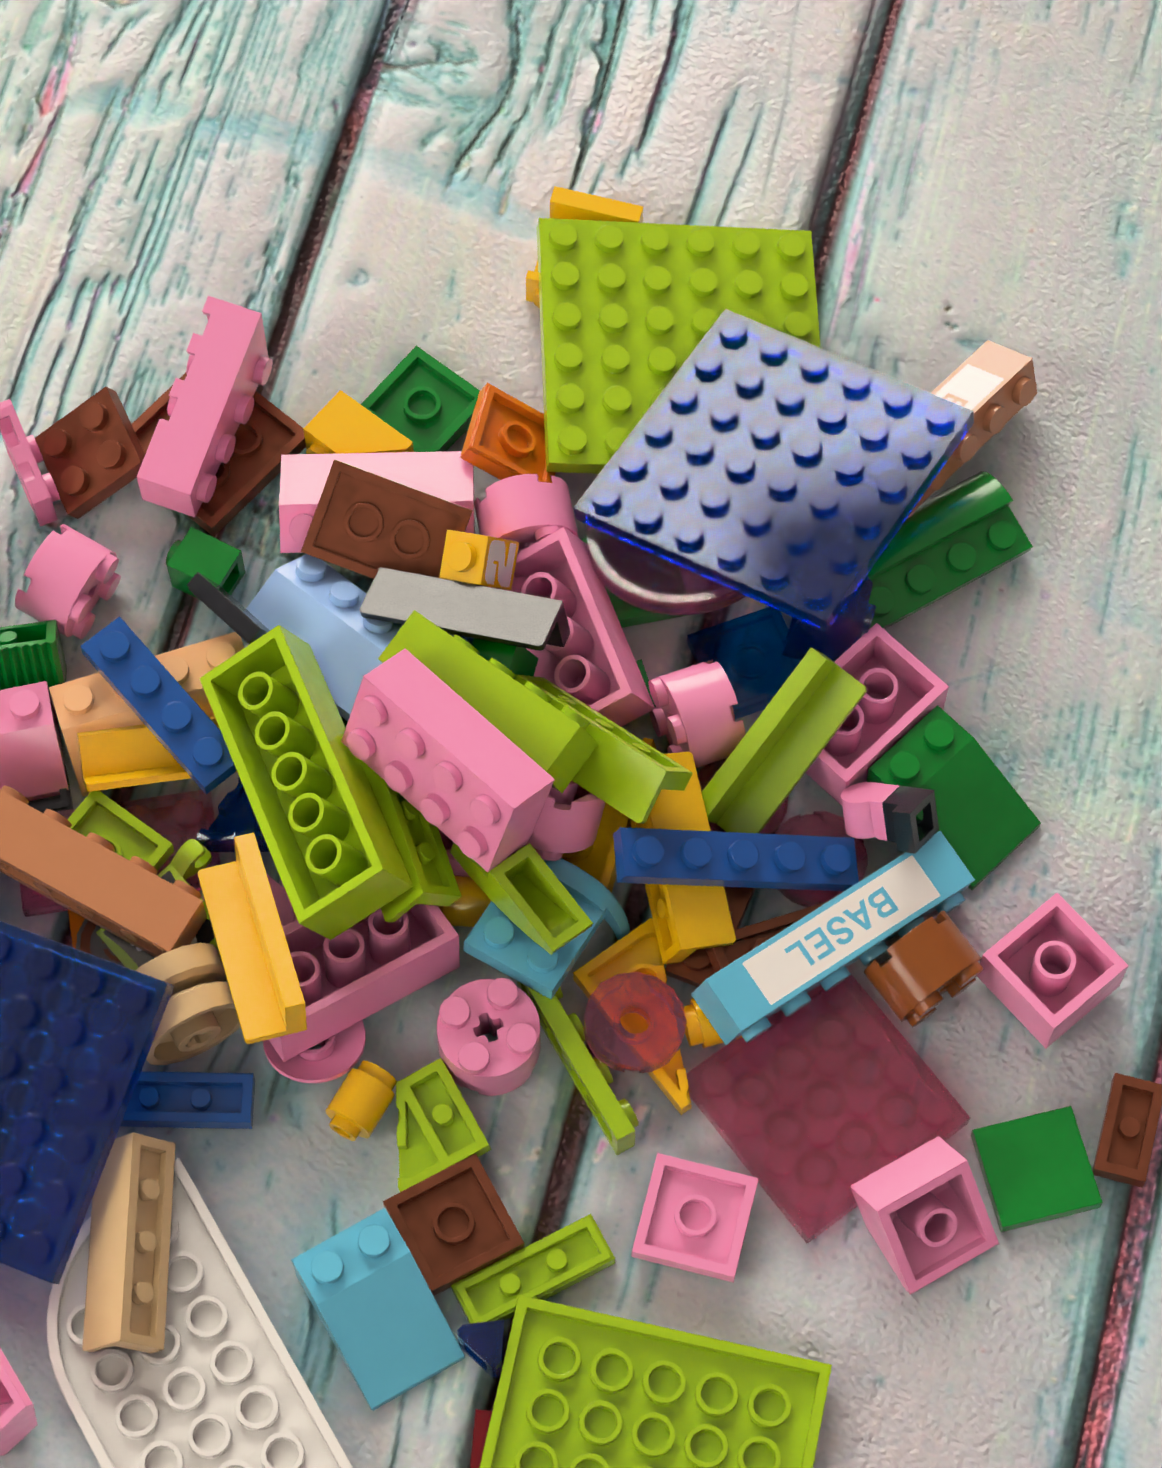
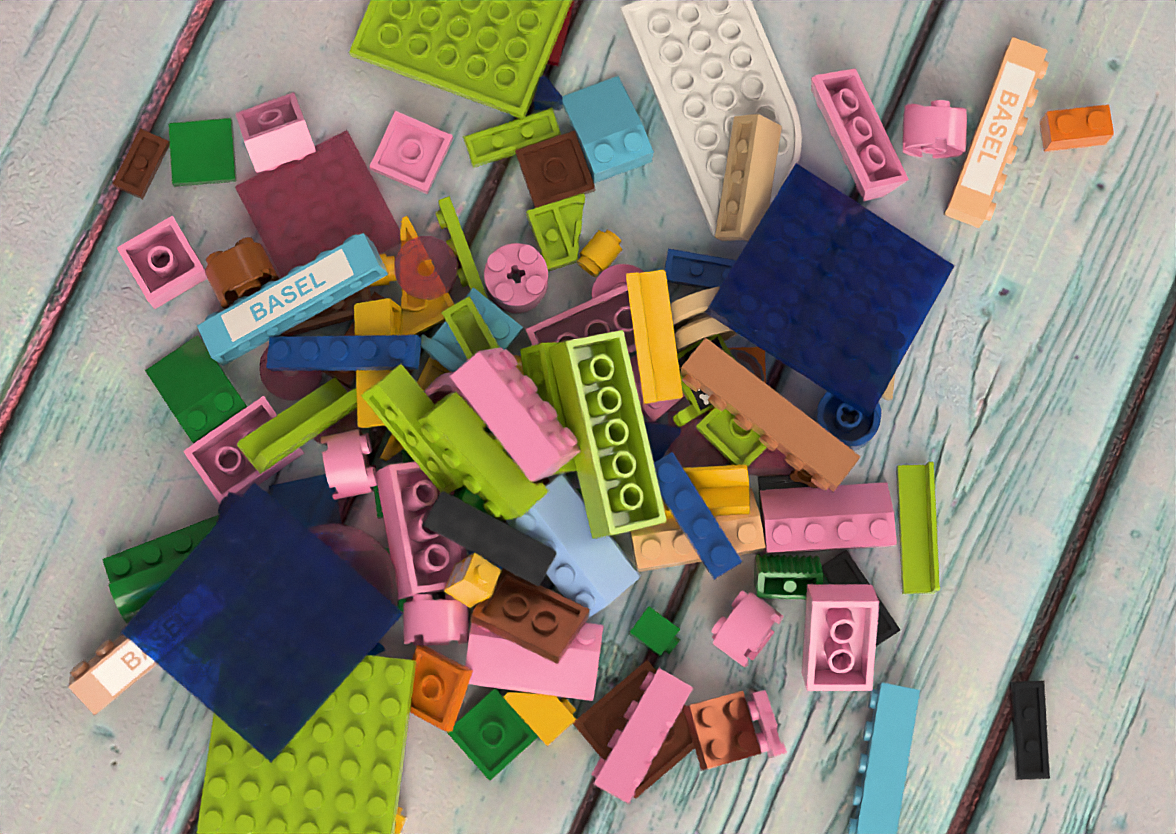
camera: 175 degrees left, 15 degrees up
(227, 608) = (639, 574): black tile -> none
(890, 814) = (239, 372): leg -> none

